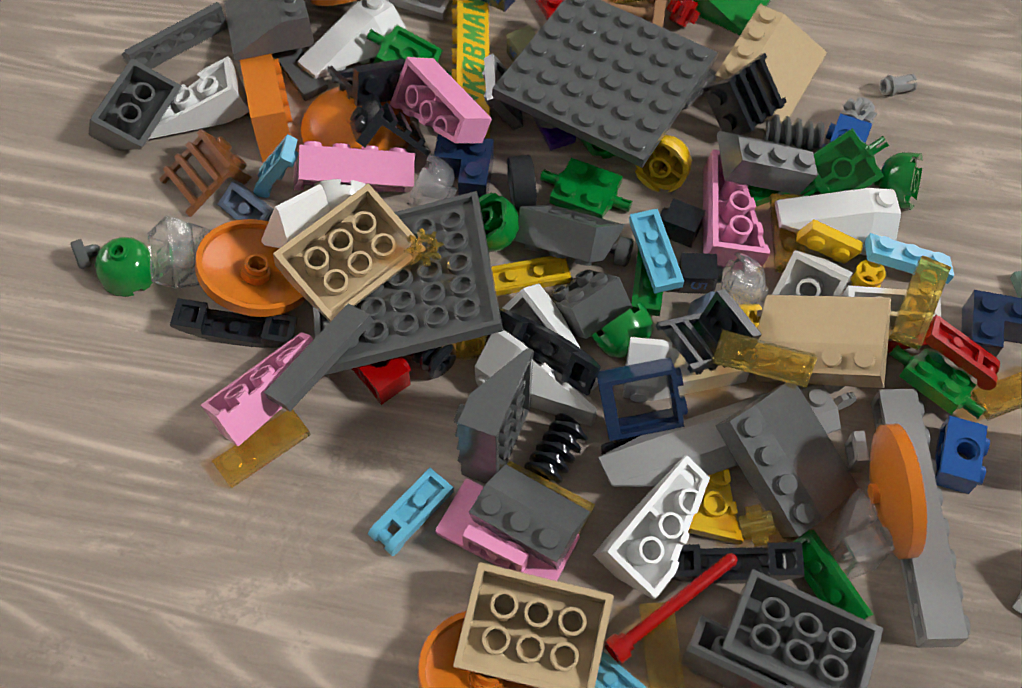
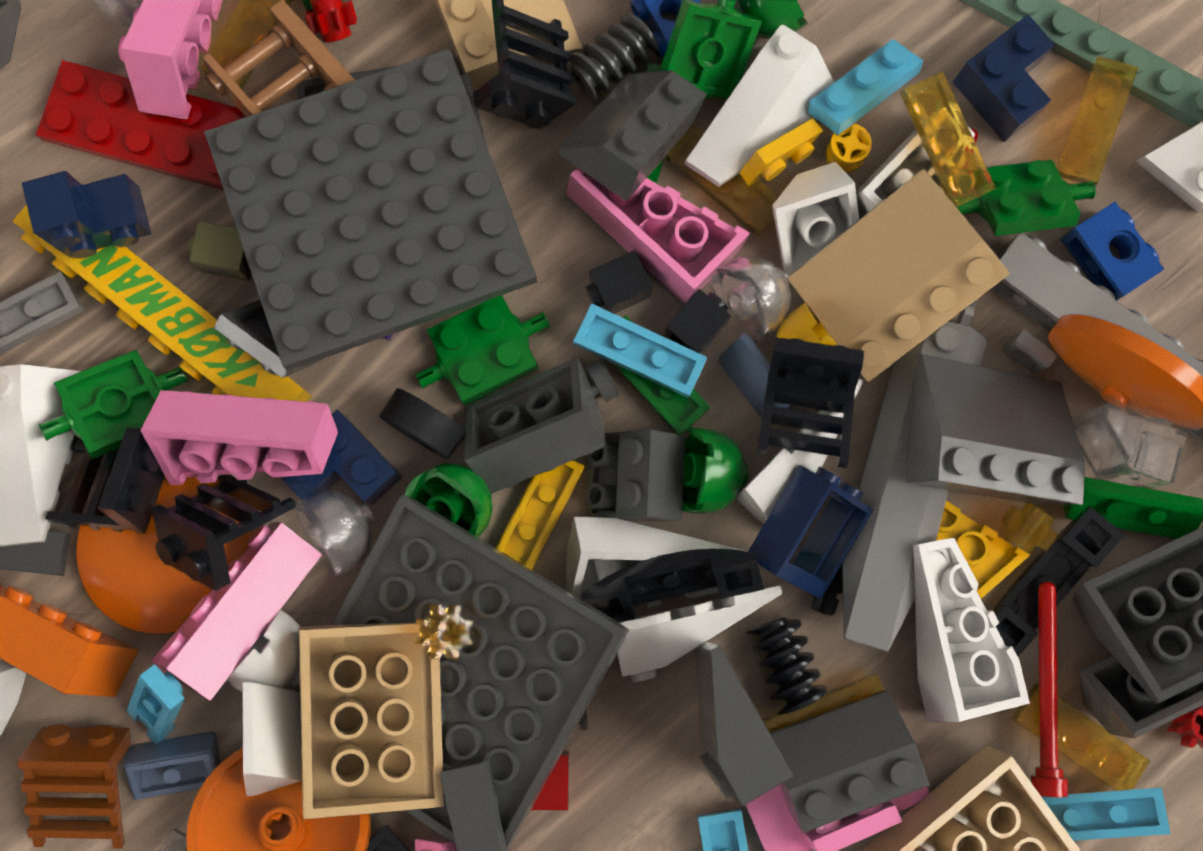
camera: 55 degrees left, 20 degrees up
(666, 166) = (542, 229): yellow cylinder -> none
(764, 358) = (892, 373): clear yellow plate -> none
(963, 352) = (1025, 146): red plate -> none

